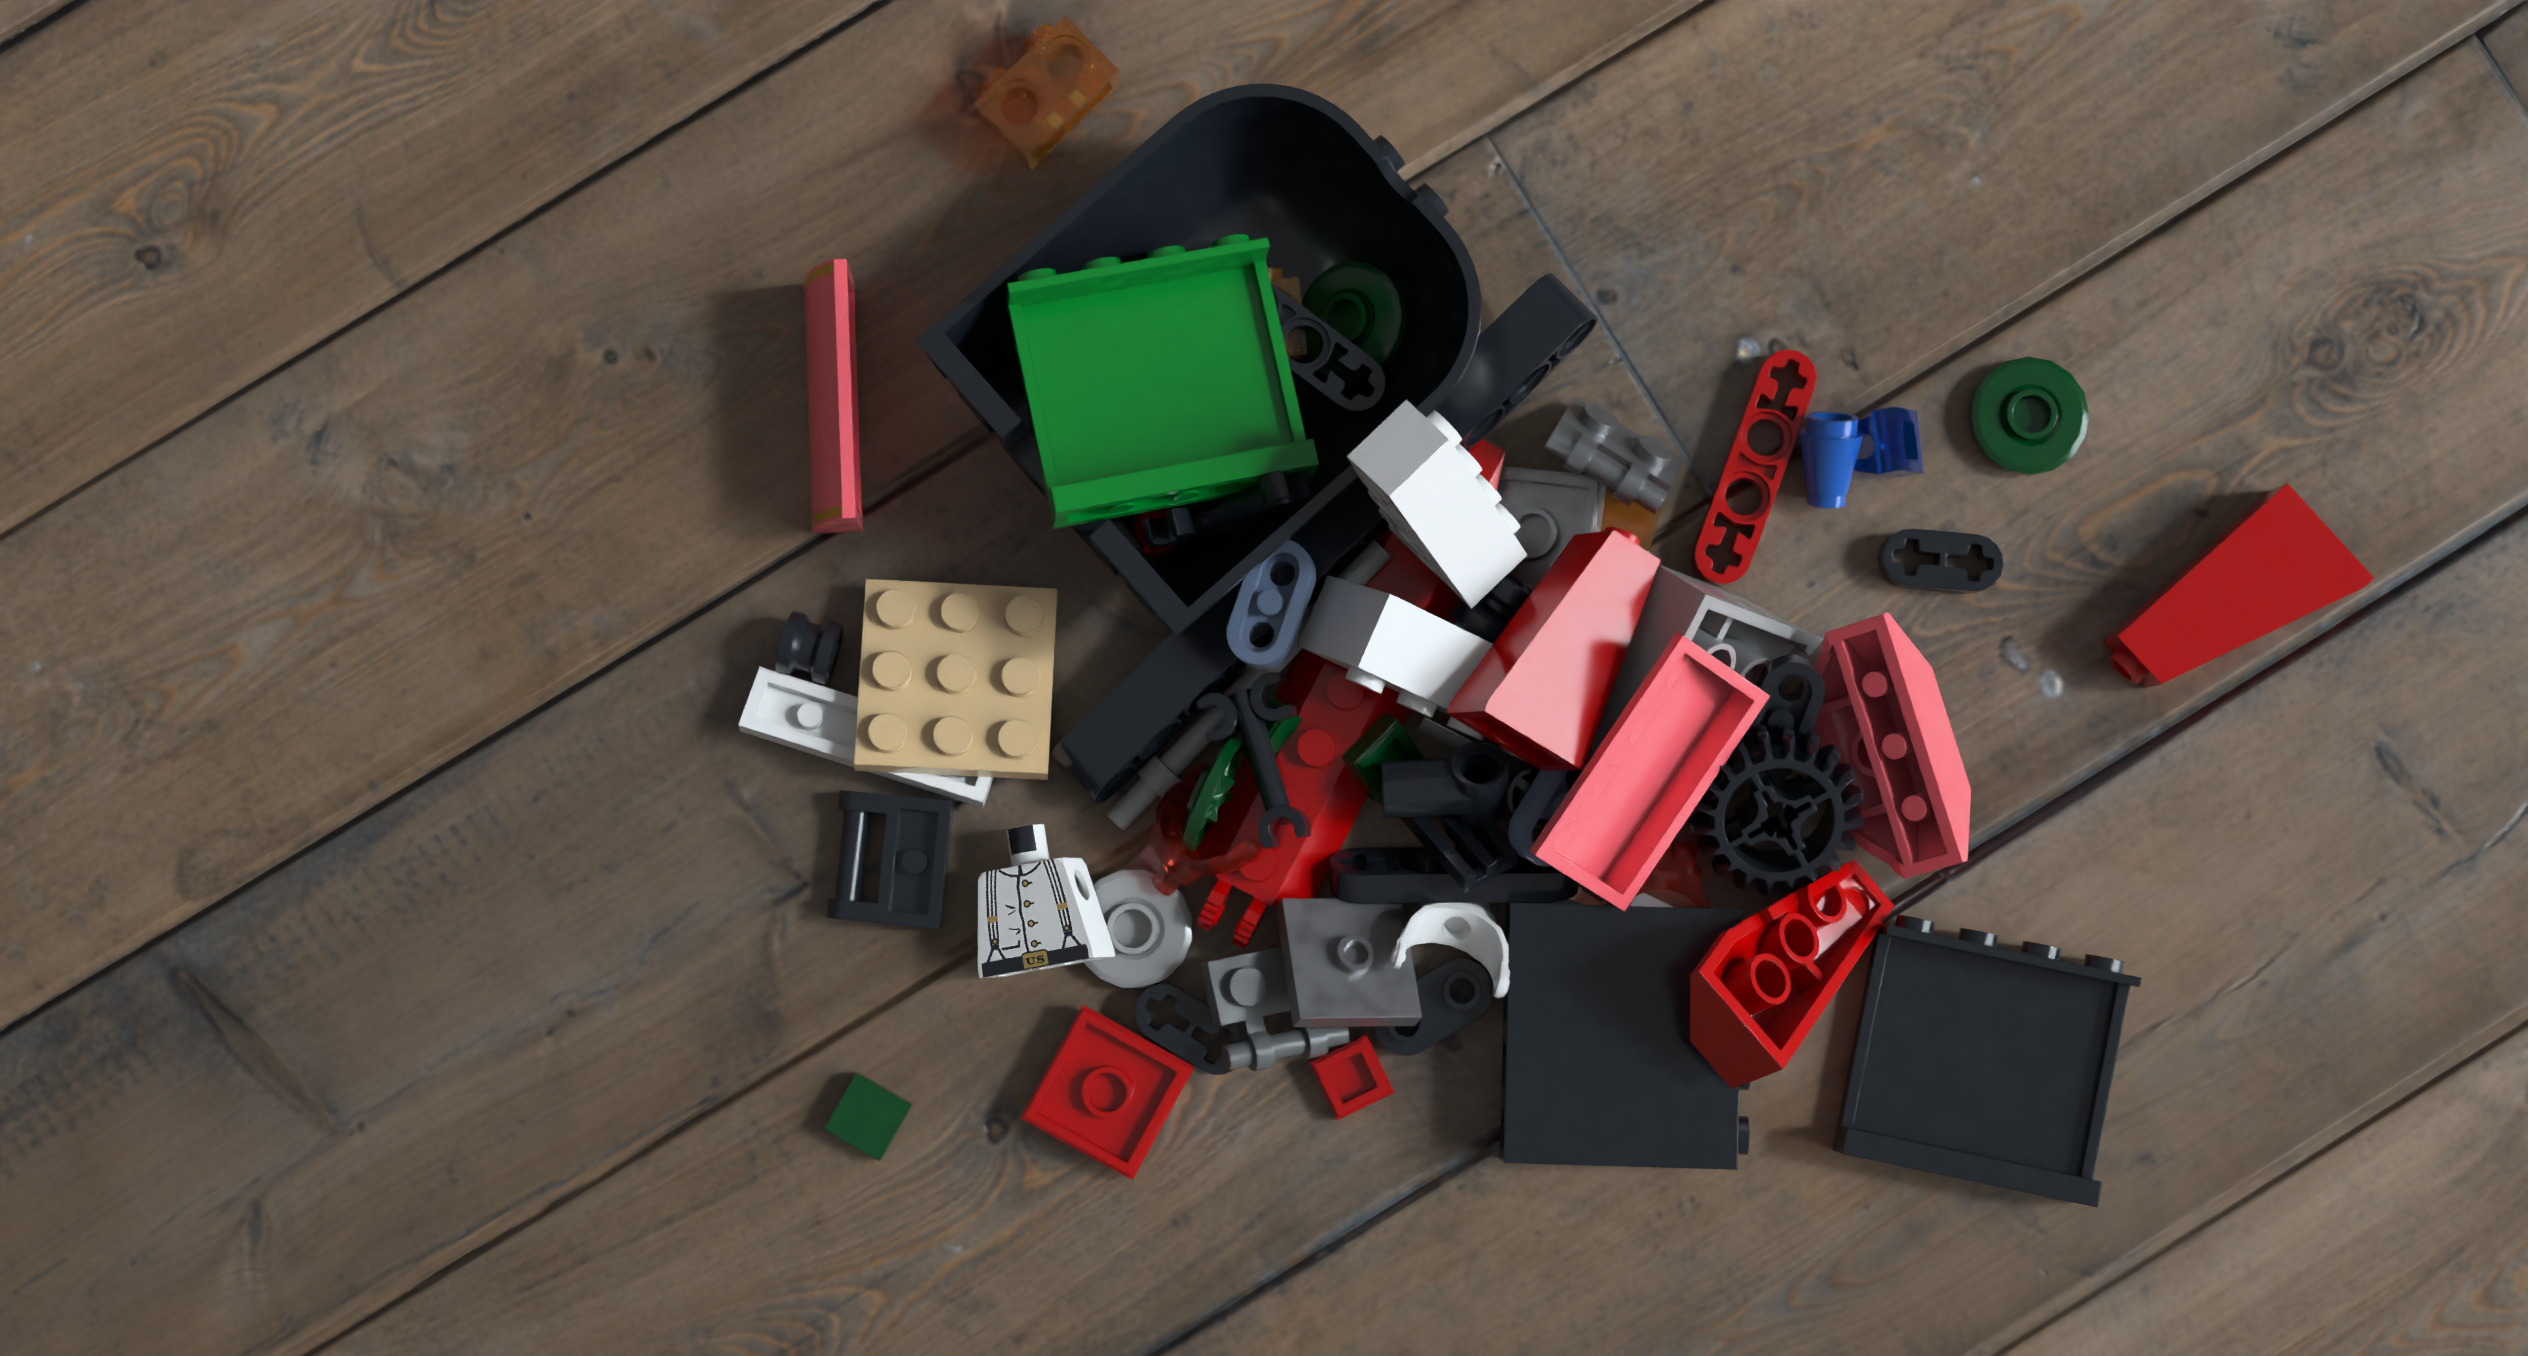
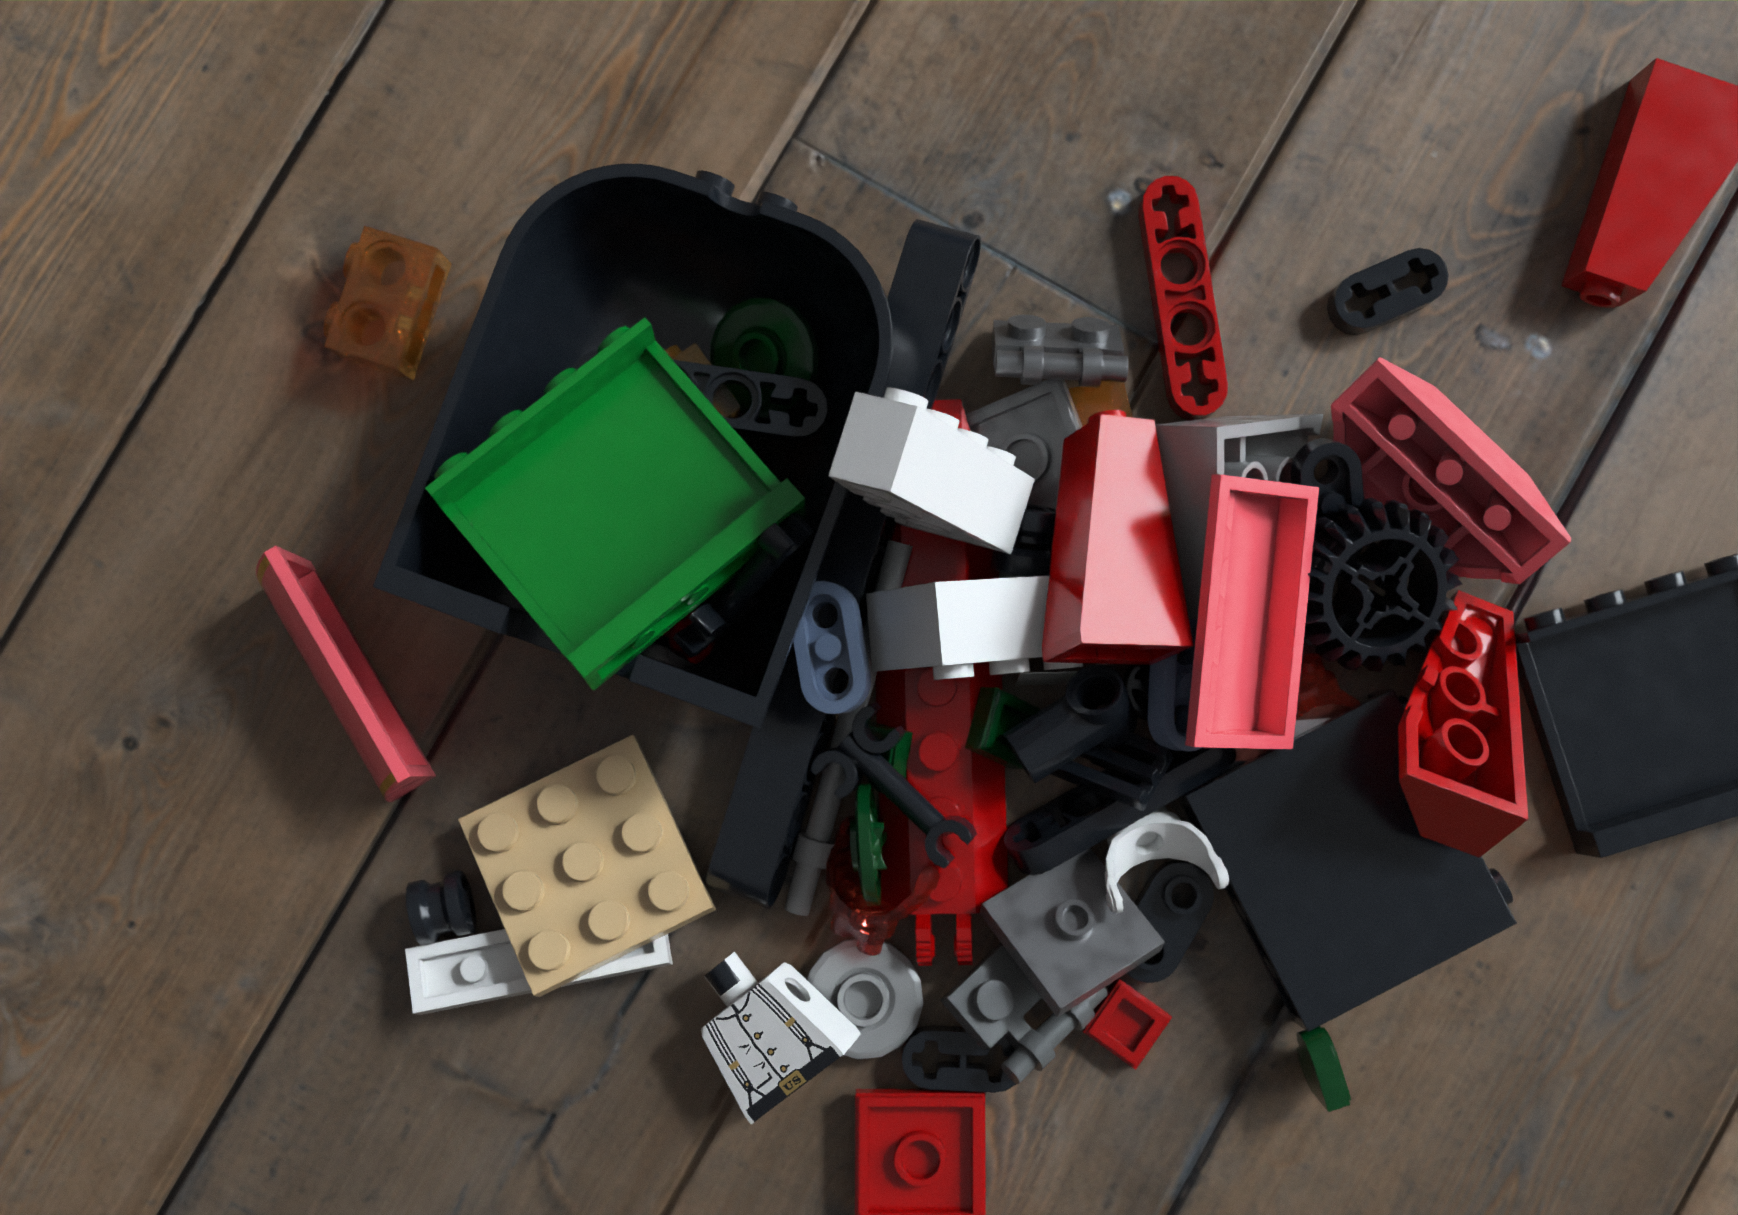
camera: 25 degrees left, 0 degrees up
(912, 859) = (634, 1046): black plate -> none
(1500, 1202) = (1322, 1068): none -> dark green tile
(1829, 456) = (1244, 251): blue cone -> none
(1895, 443) = (1295, 208): clear blue tile -> none
(2028, 416) = (1393, 125): dark green wheel -> none

